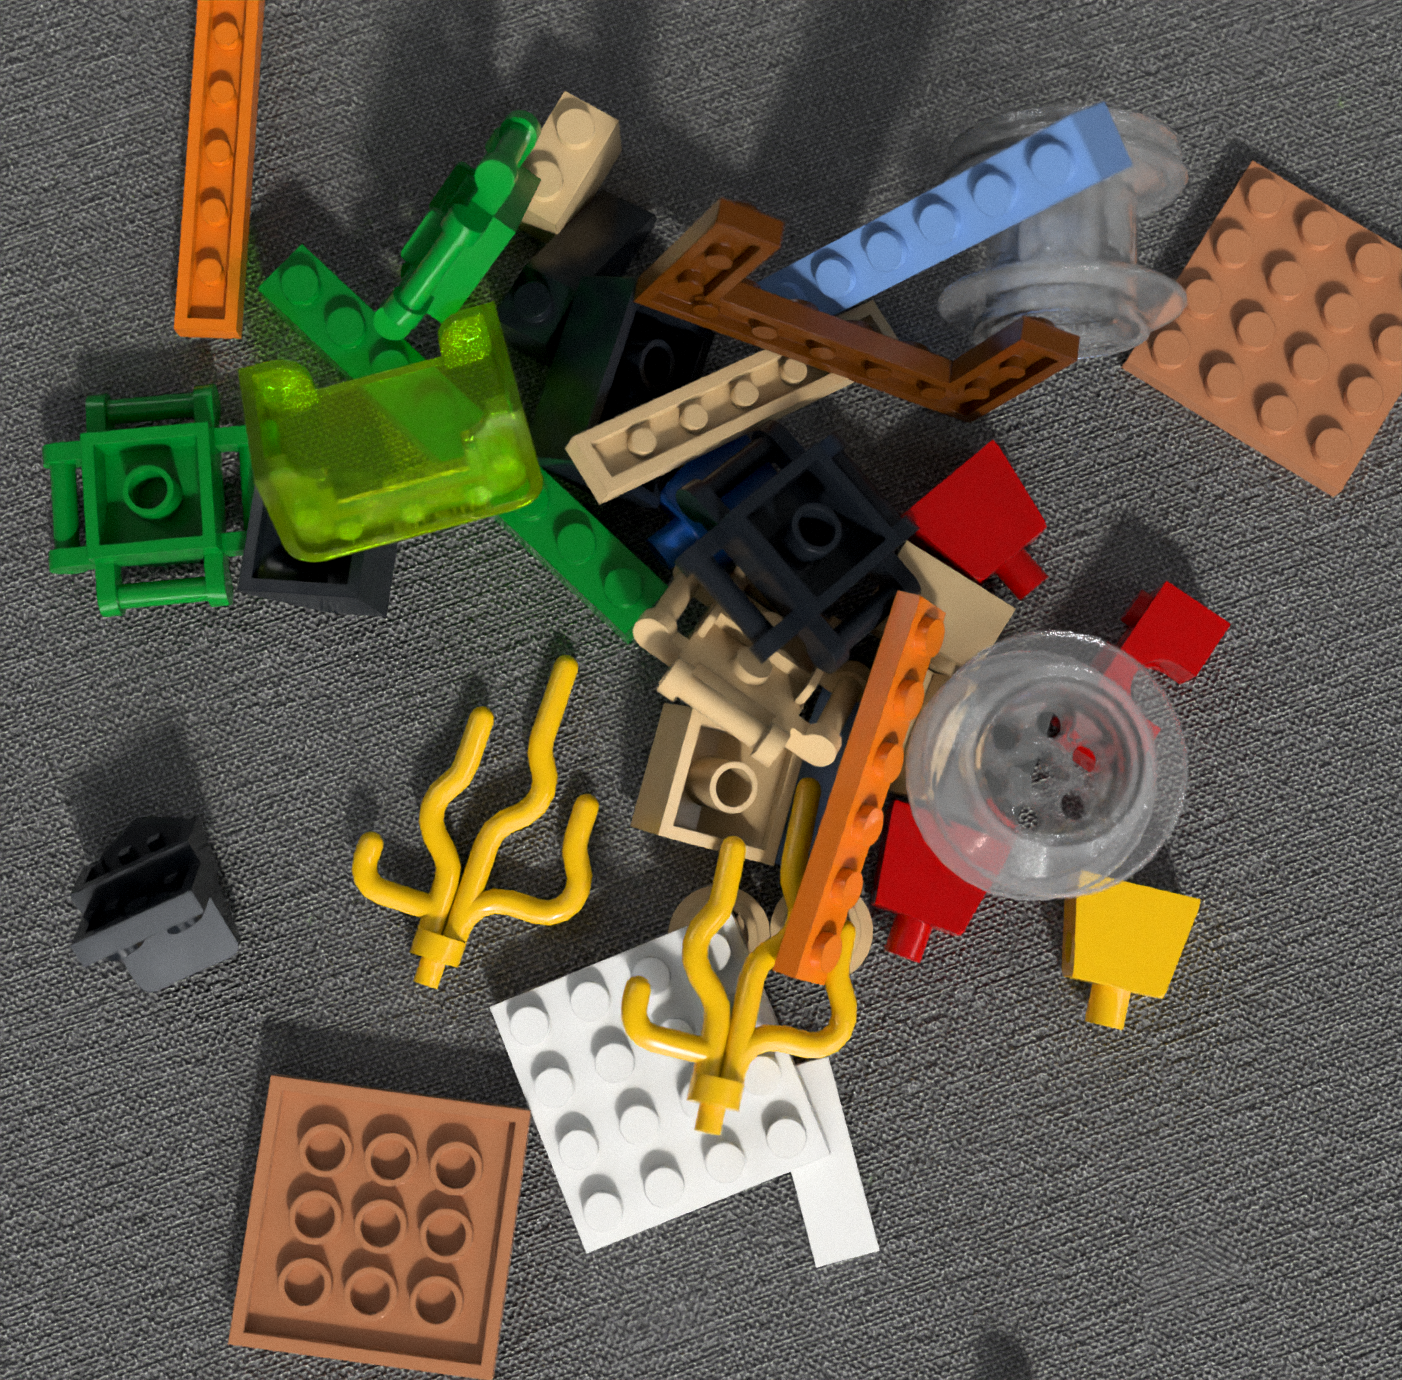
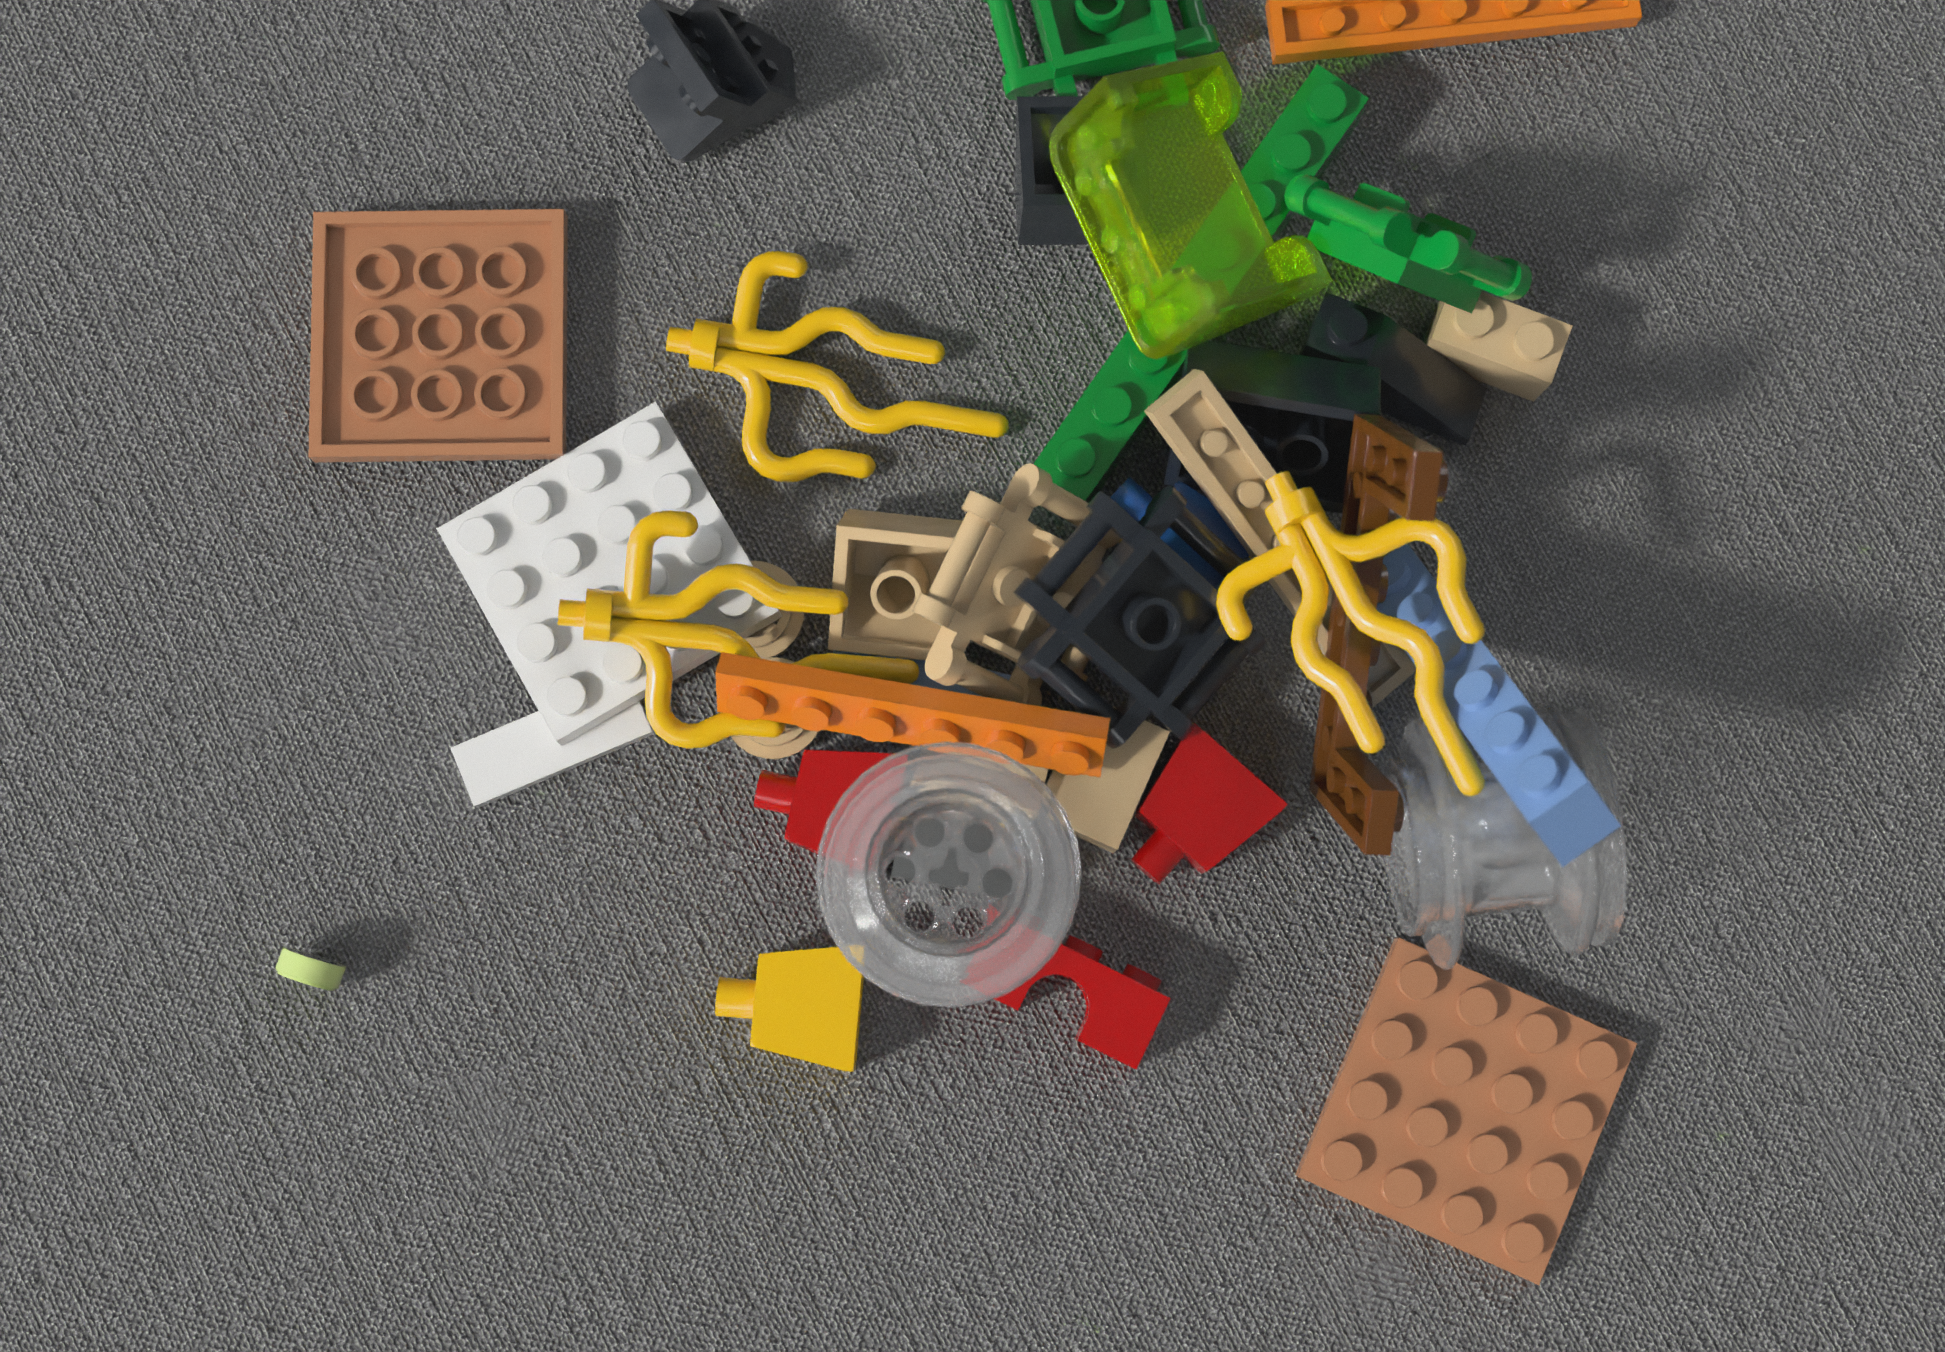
camera: 80 degrees right, 0 degrees up
(765, 358) = (1315, 546): none -> yellow plant

